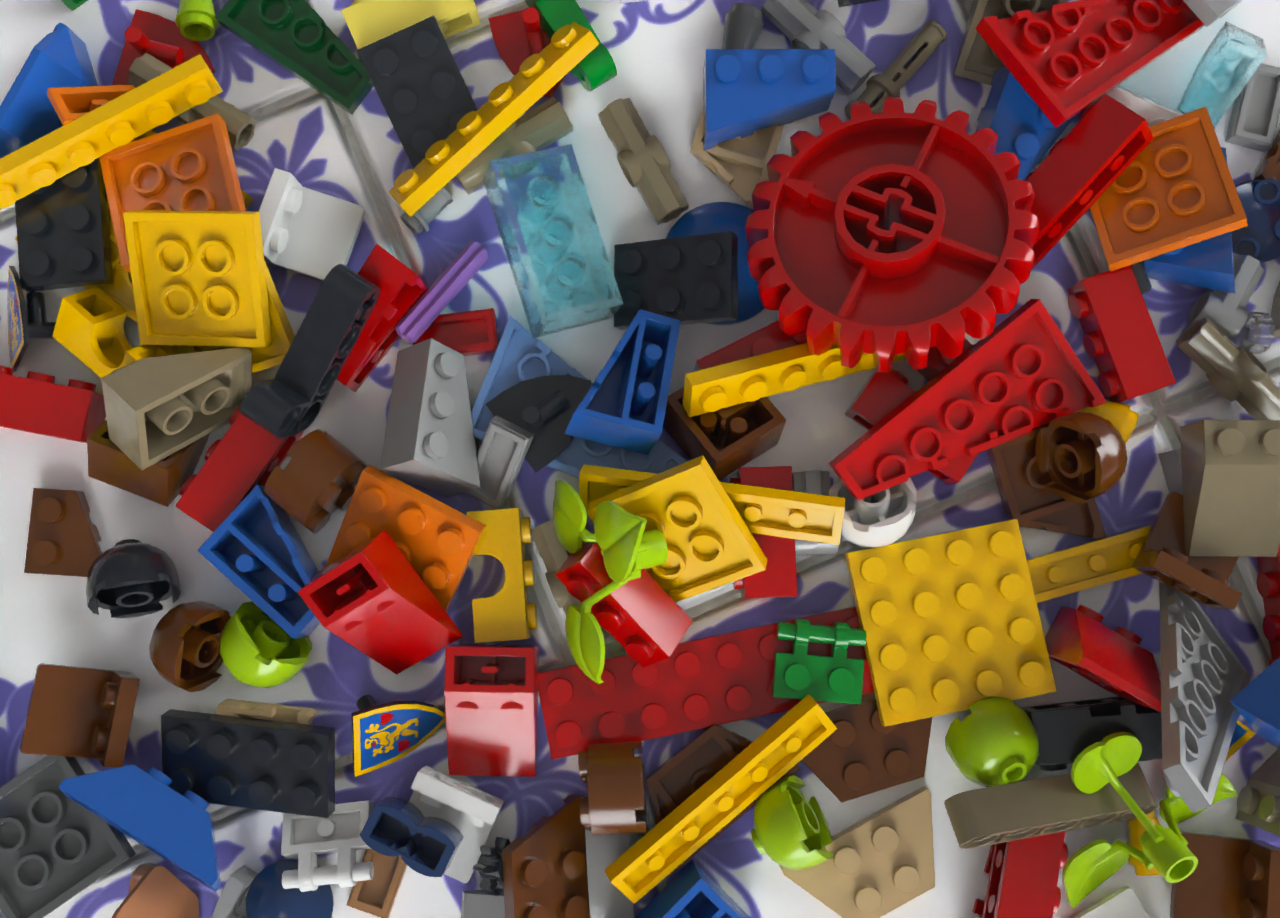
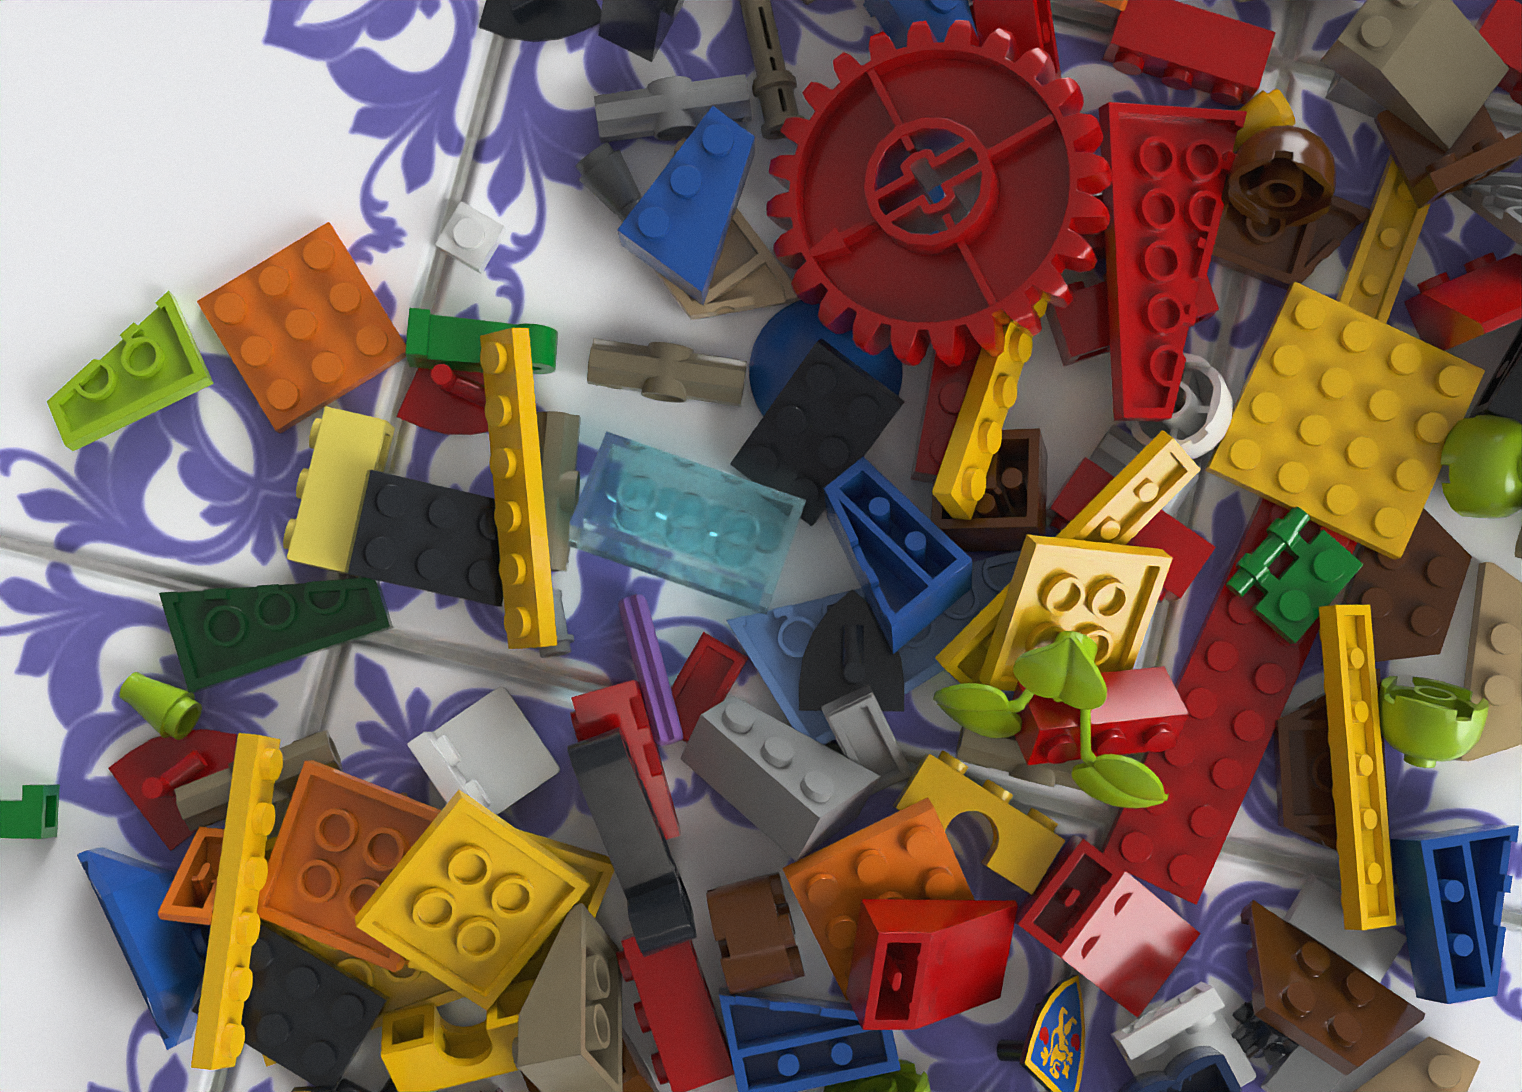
camera: 55 degrees left, 0 degrees up
(614, 788) = (1273, 861): reddish brown brick -> none

